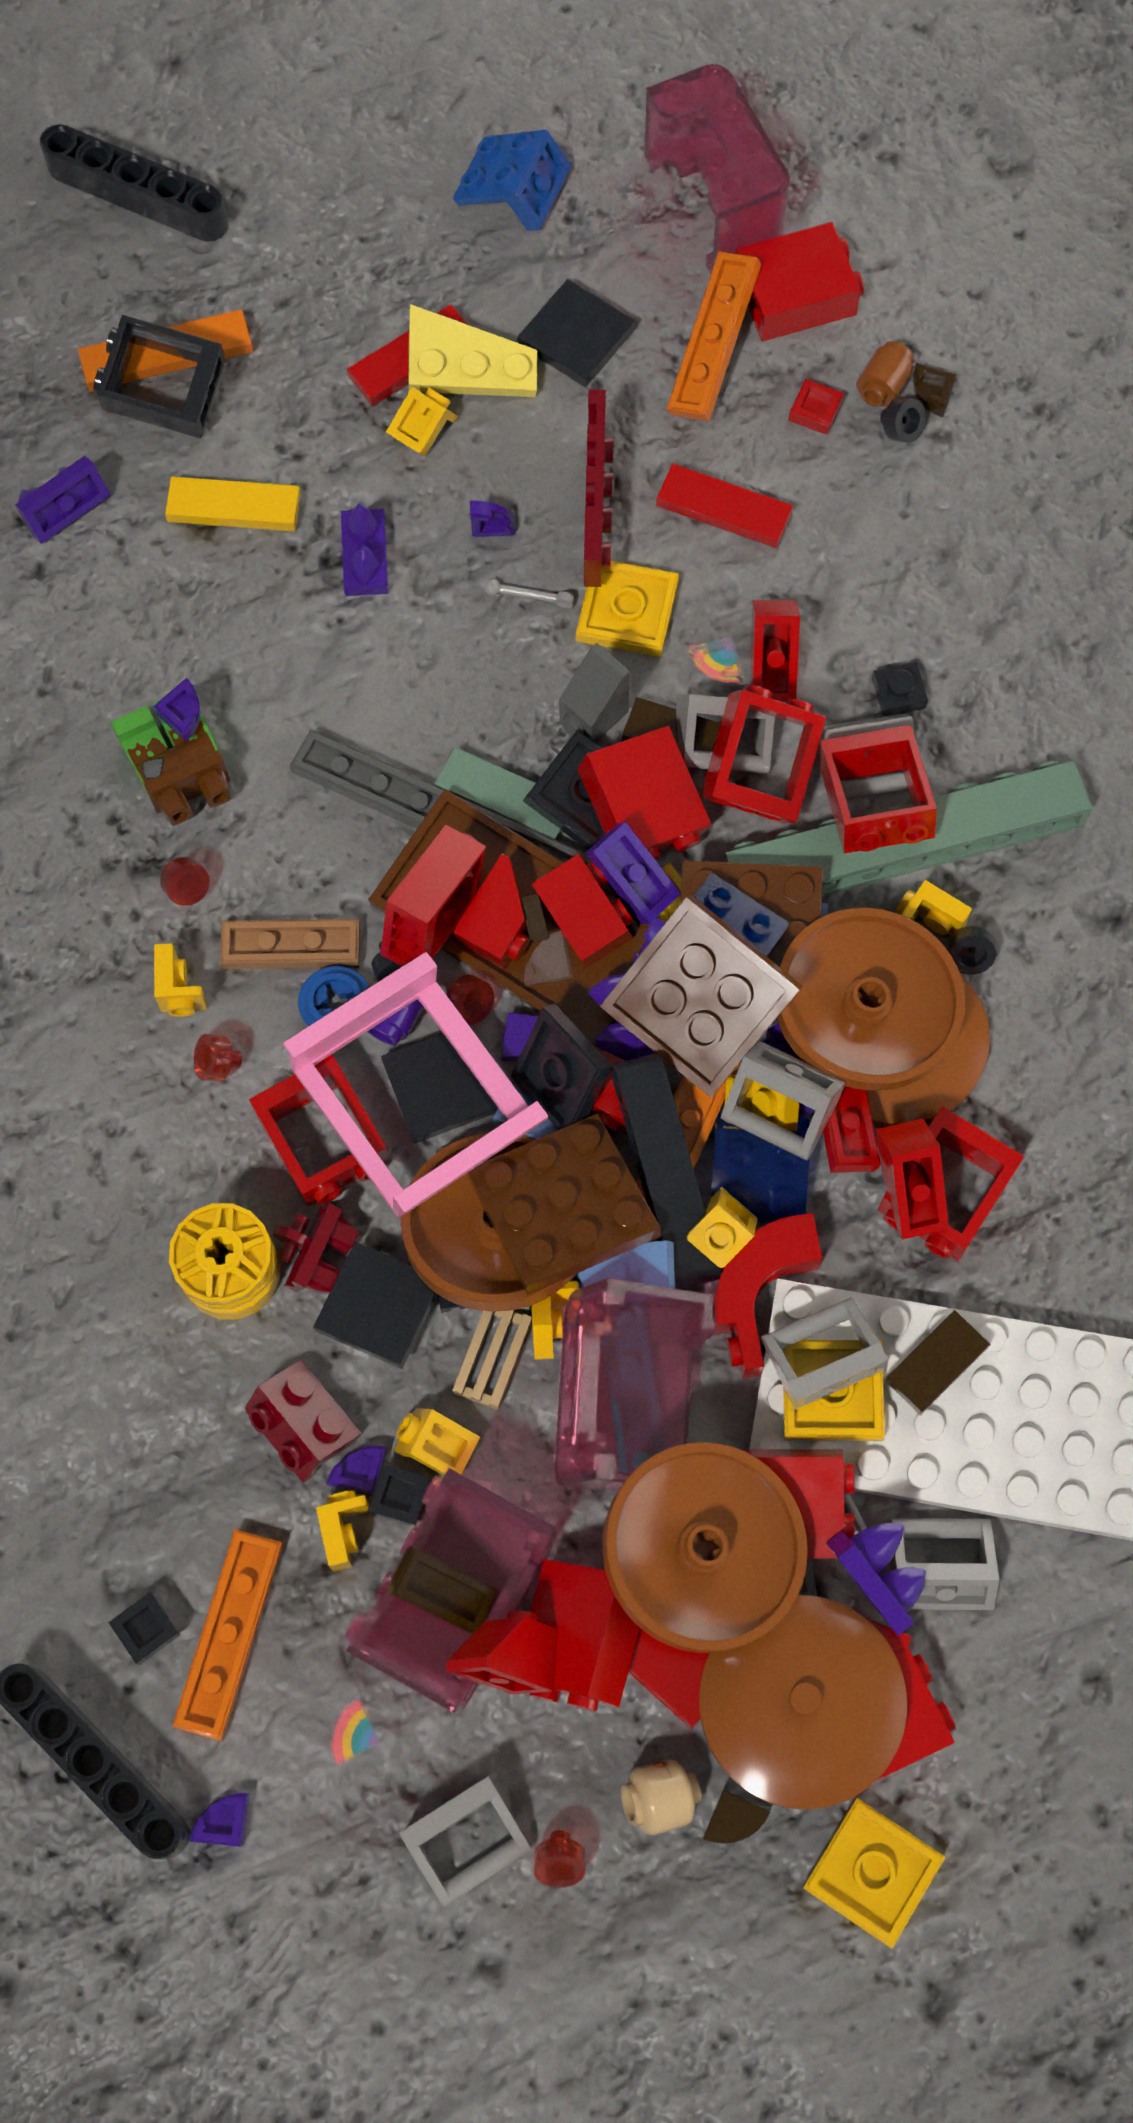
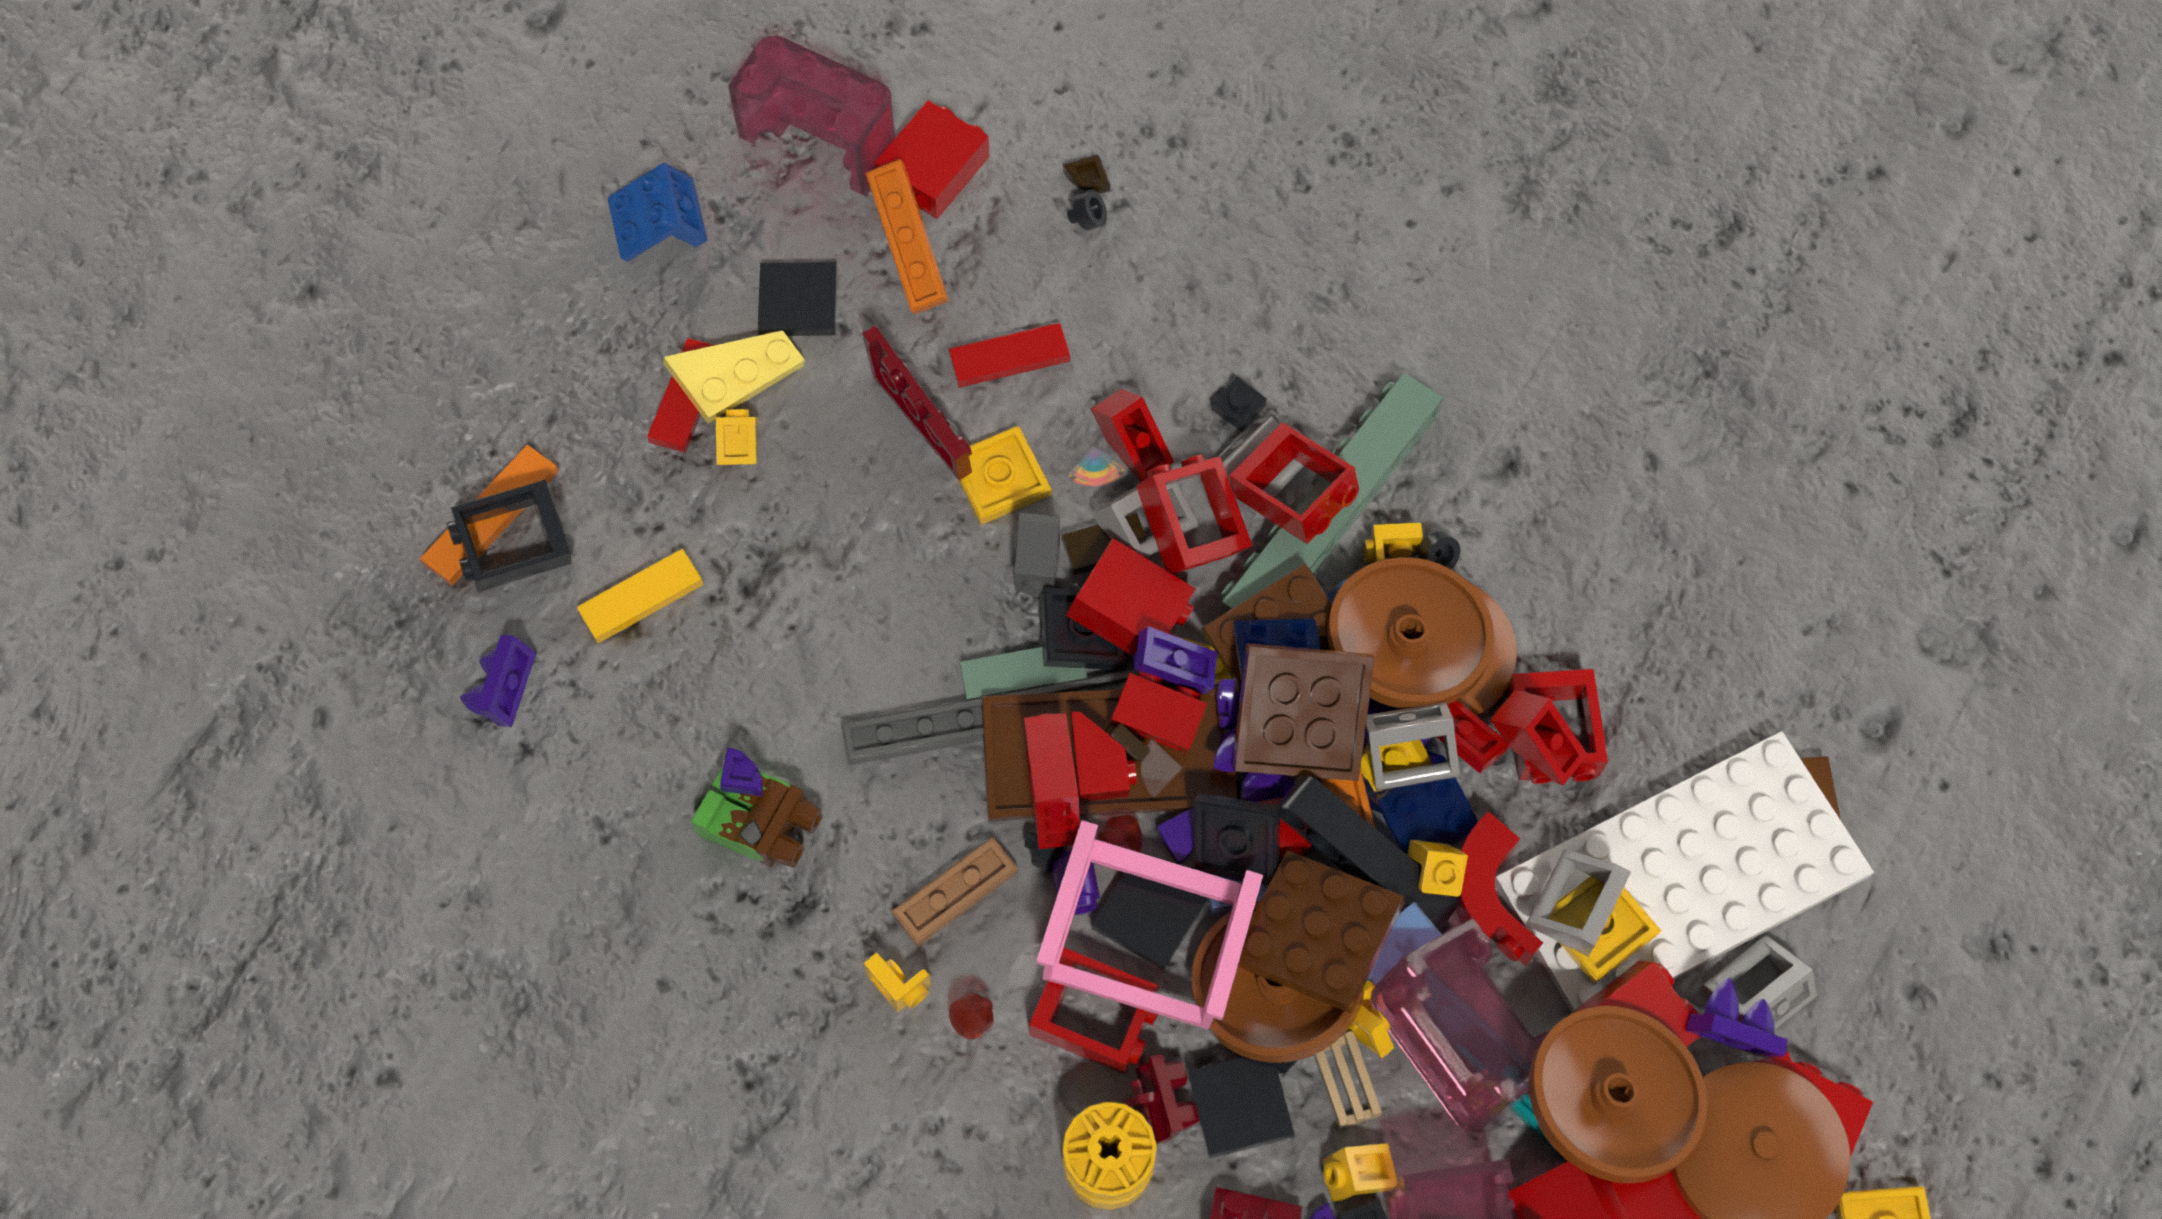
camera: 40 degrees left, 5 degrees down
(134, 182) = (343, 395): black beam -> none
(184, 881) = (840, 901): clear red tile -> none
(315, 993) = (1019, 892): blue gear -> none
(364, 551) = (771, 564): dark purple tile -> none
(490, 520) = (848, 478): dark purple tile -> none
(562, 599) = (889, 526): light grey hinge -> none
(816, 406) = (1016, 241): red tile -> none
(885, 374) = (1050, 186): dark orange brick -> none
(937, 1362) = (1652, 852): dark brown tile -> none

